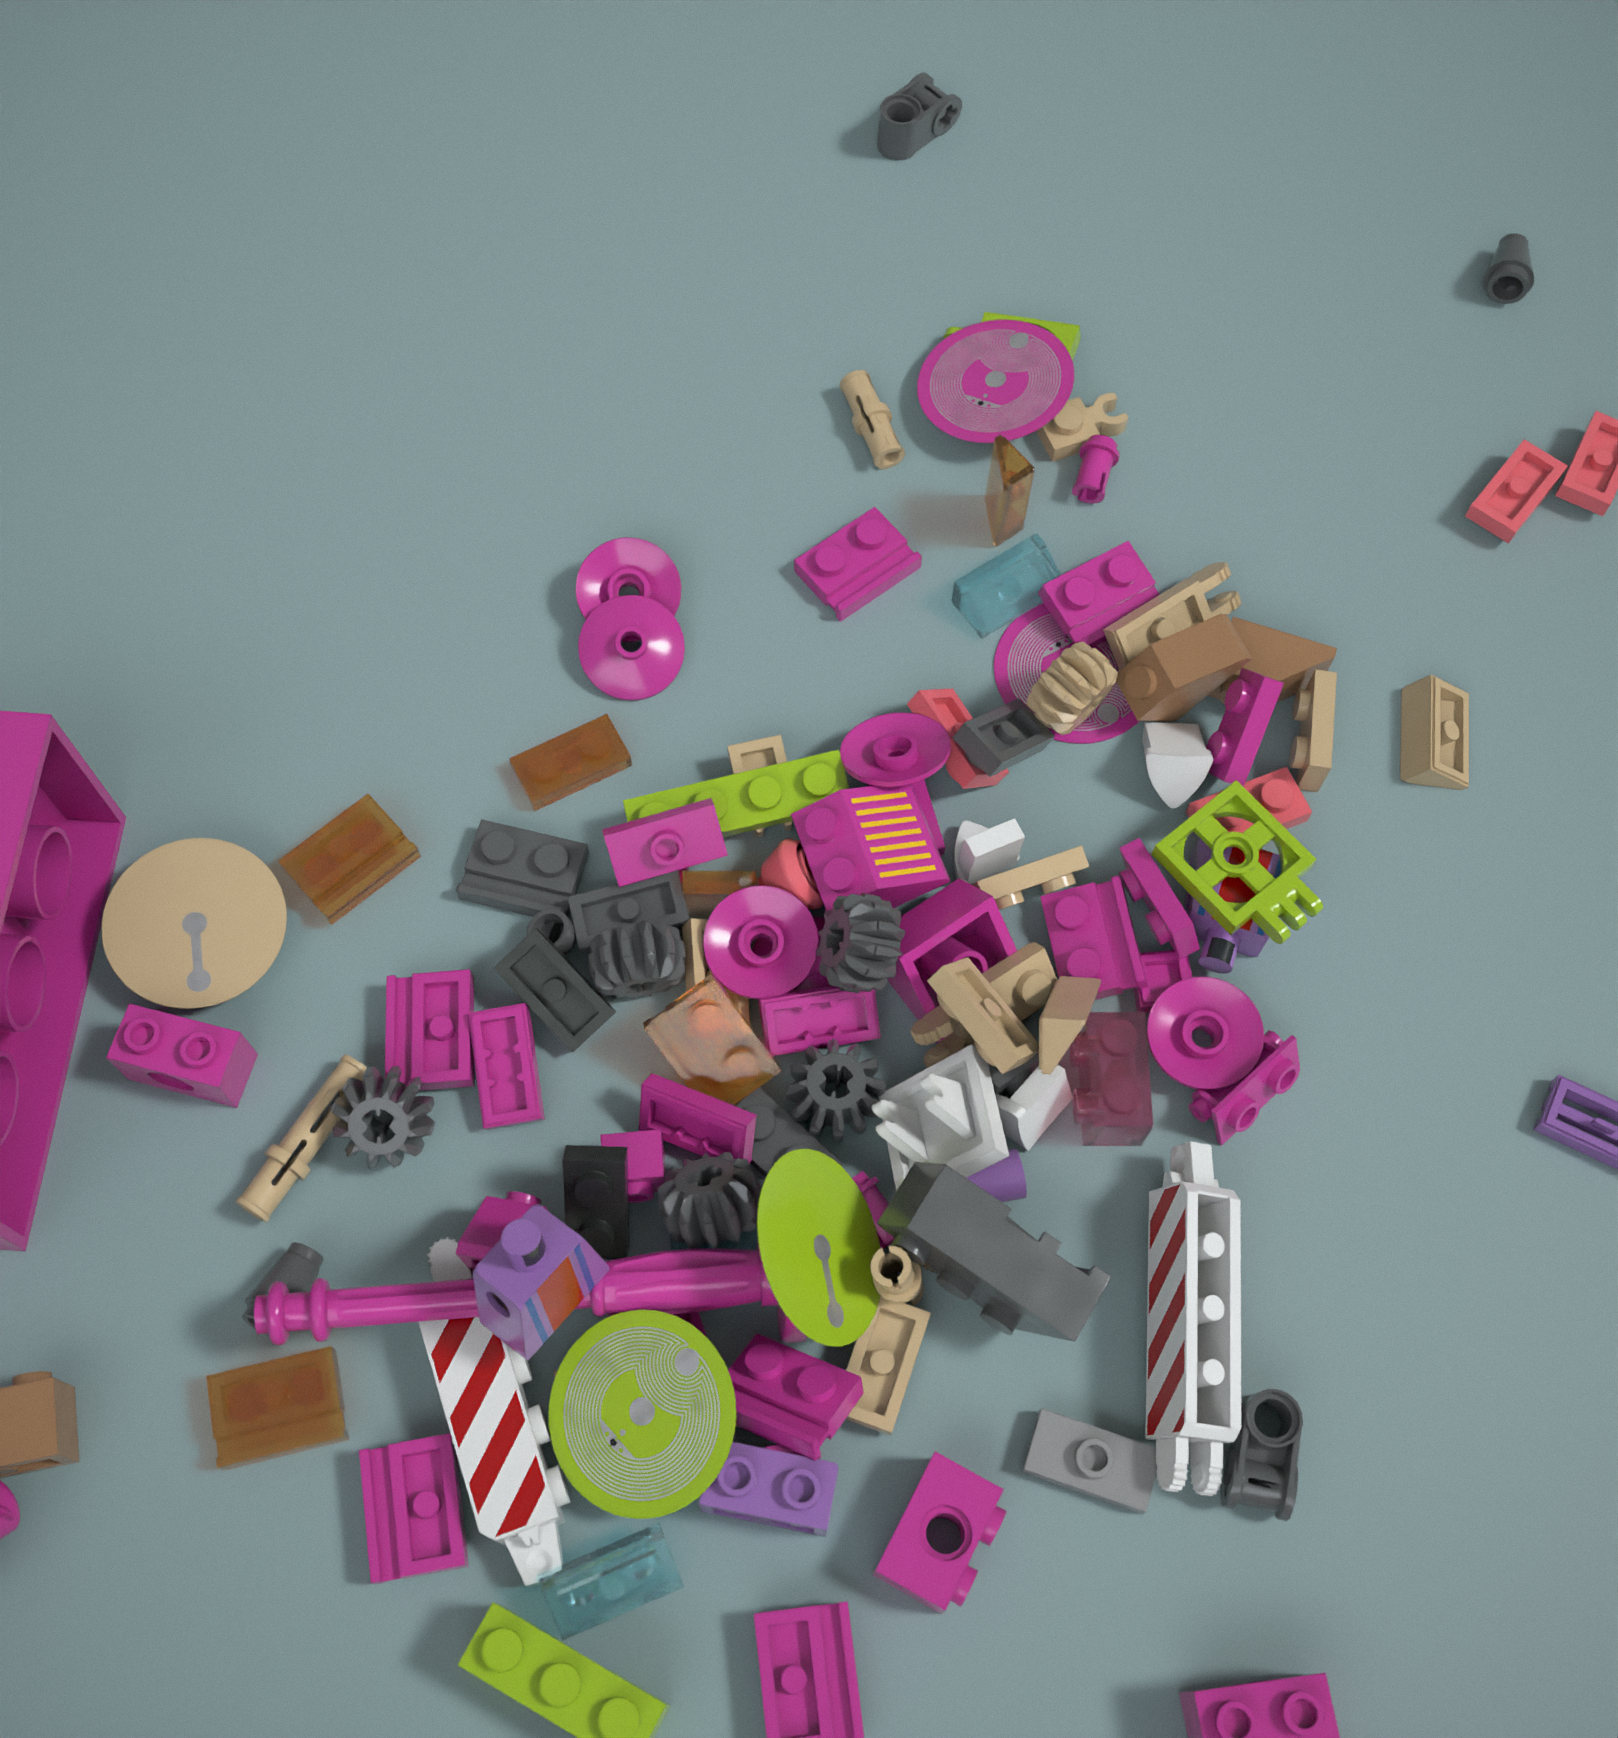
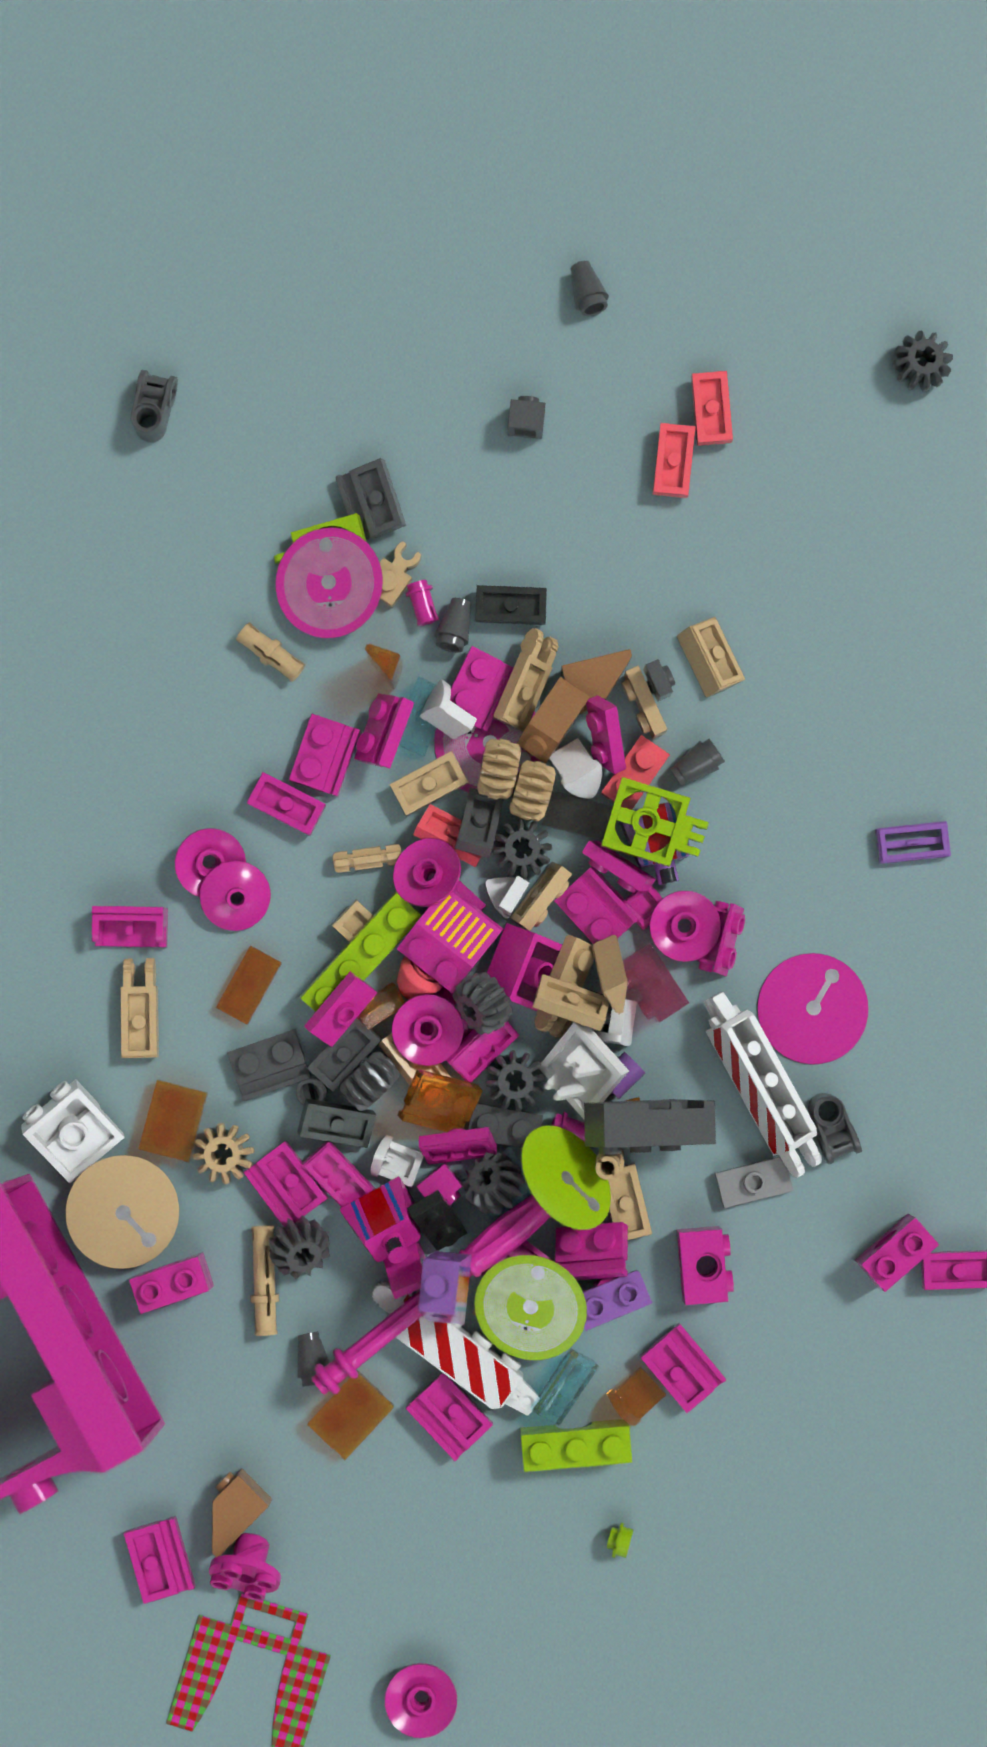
camera: 30 degrees left, 20 degrees up
(215, 784) = (70, 1130): none -> white plate
(378, 919) = (231, 1162): none -> tan gear
(411, 707) = (139, 1012): none -> tan hinge
(478, 603) = (129, 926): none -> dark pink hinge
(521, 1154) = (384, 1221): none -> dark pink torso
(595, 1095) = (396, 1160): none -> white tile
(706, 1677) = (635, 1396): none -> clear orange tile
(771, 584) = (286, 804): none -> dark pink plate
(824, 701) = (366, 858): none -> tan axle
(964, 557) = (383, 730): none -> dark pink plate
(968, 663) = (429, 783): none -> tan plate
(1045, 594) = (446, 714): none -> white tile
(1046, 790) = (510, 852): none -> dark grey gear
(1099, 740) = (532, 790): none -> tan gear
(1109, 331) = (372, 496): none -> dark grey plate
(1117, 514) = (454, 627): none -> dark grey cone
(1134, 810) = (577, 815): none -> clear smoke plate
(1206, 529) = (510, 605): none -> pearl dark grey plate
(1327, 1269) = (813, 1008): none -> dark pink piece
(1348, 842) = (698, 762): none -> dark grey cone
(1352, 350) = (526, 417): none -> dark grey plate
(1356, 701) = (659, 680): none -> dark grey plate

